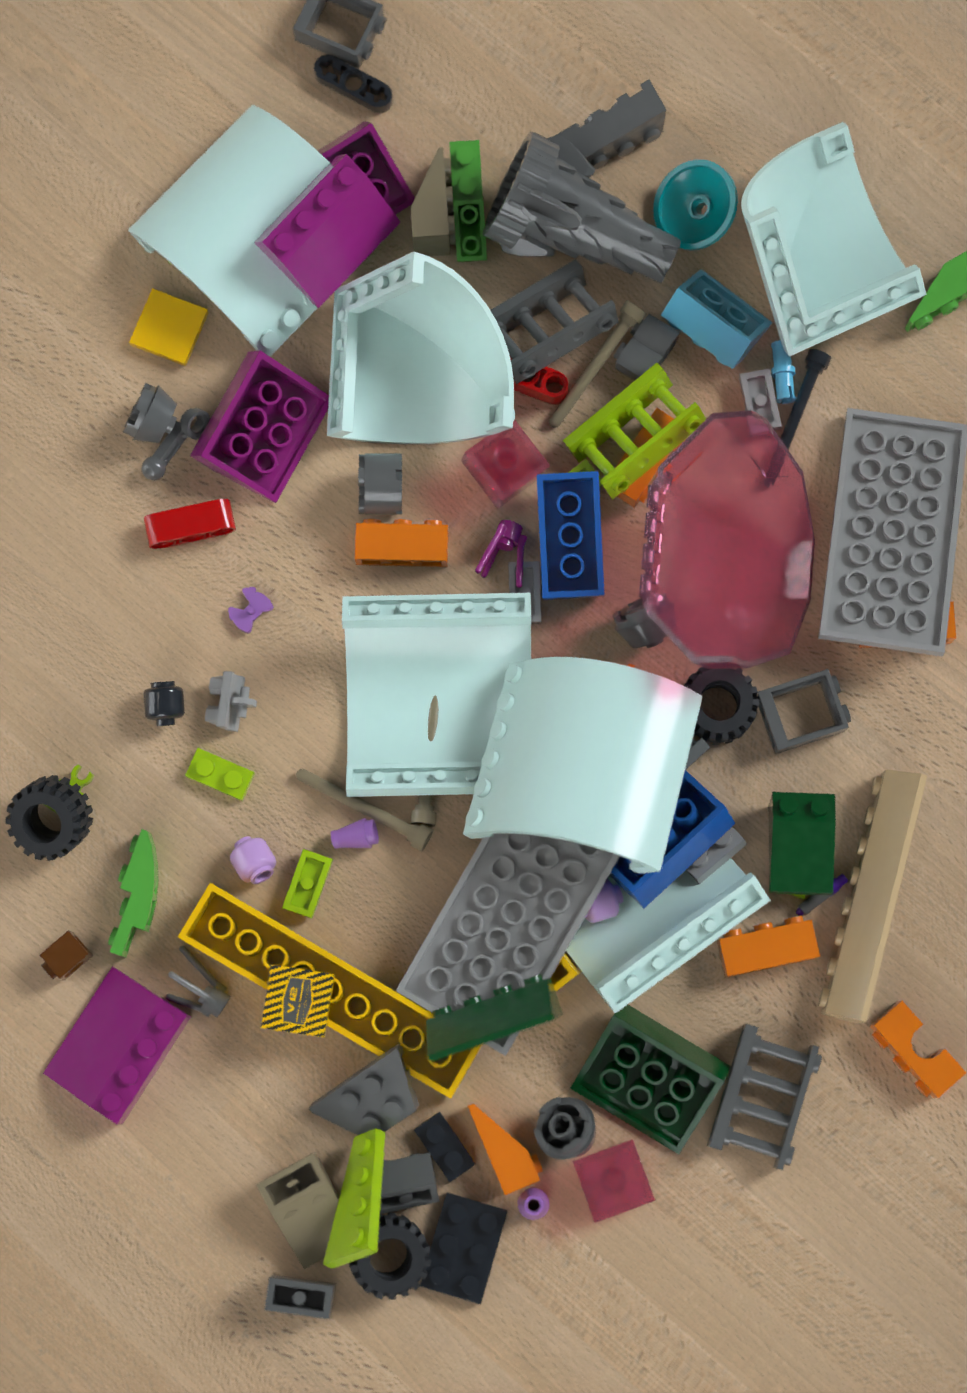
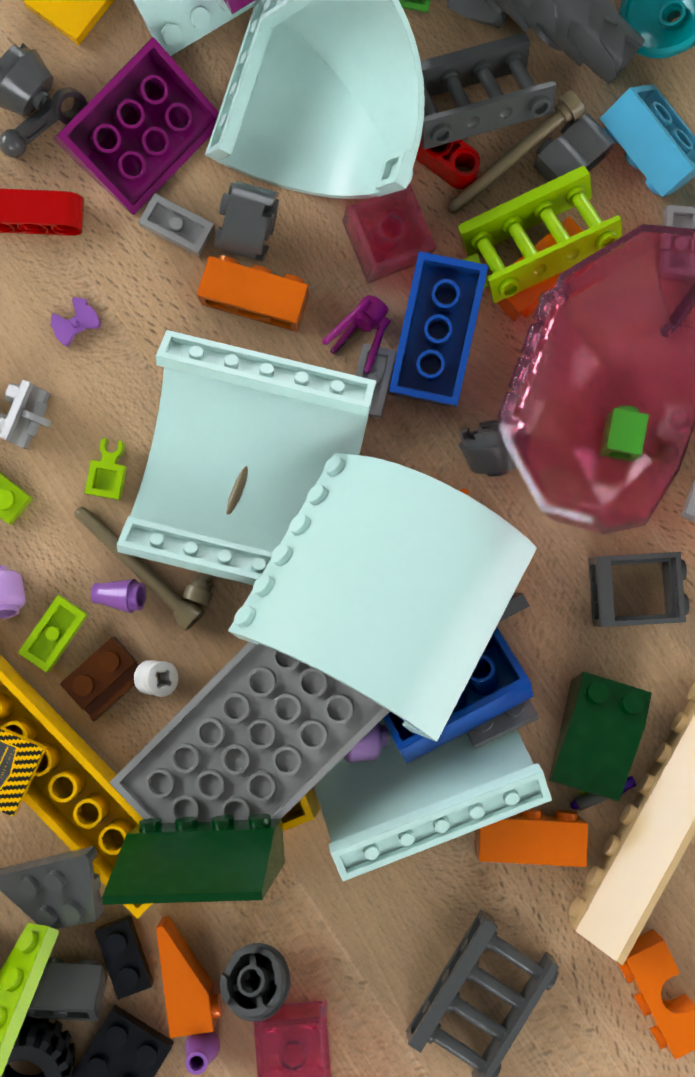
camera: 10 degrees right, 5 degrees up
(316, 736) = (106, 476): none -> lime plate
(317, 502) = (177, 225): none -> light grey plate
(361, 912) = (102, 678): none -> reddish brown plate
(408, 897) = (147, 679): none -> white wheel
(651, 1078) = (367, 947): dark green slope -> none
(745, 698) = (578, 560): black tyre -> none
(754, 581) = (624, 433): none -> bright green brick

